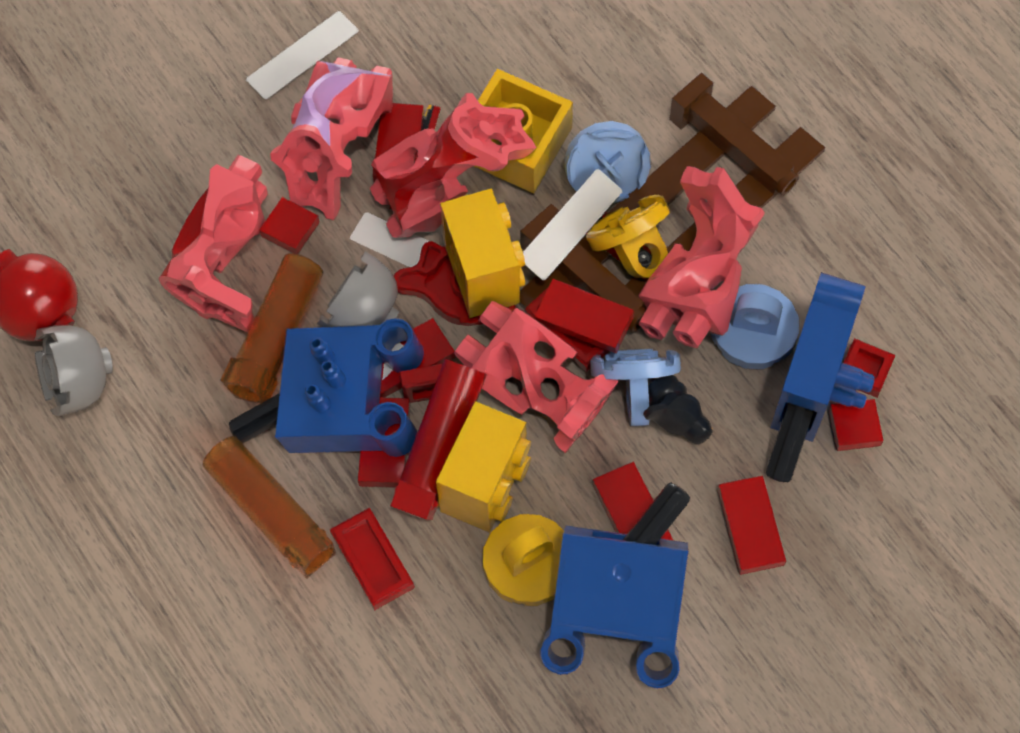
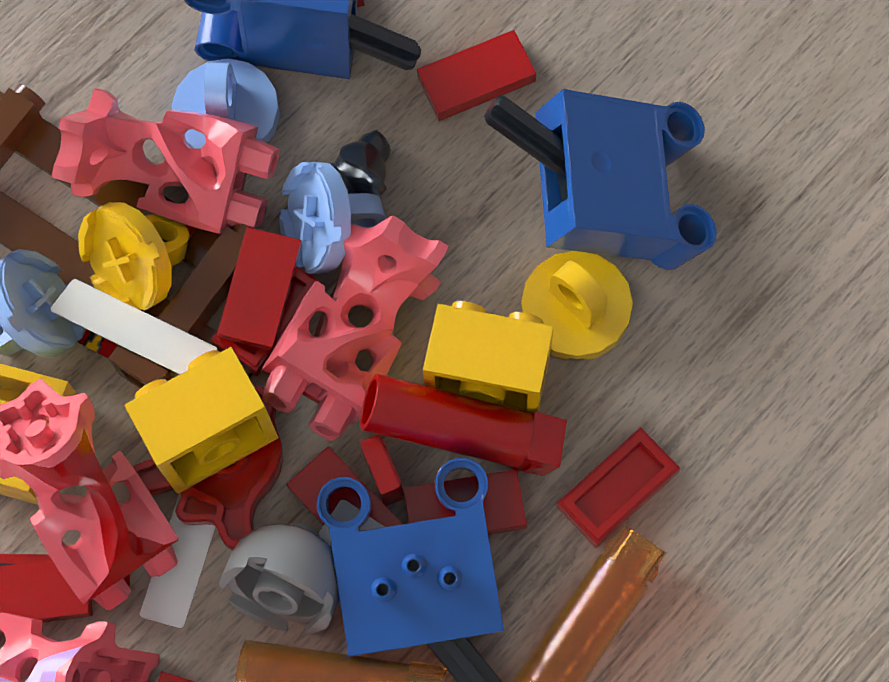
camera: 100 degrees left, 5 degrees up
(624, 497) = (489, 203): red tile -> none

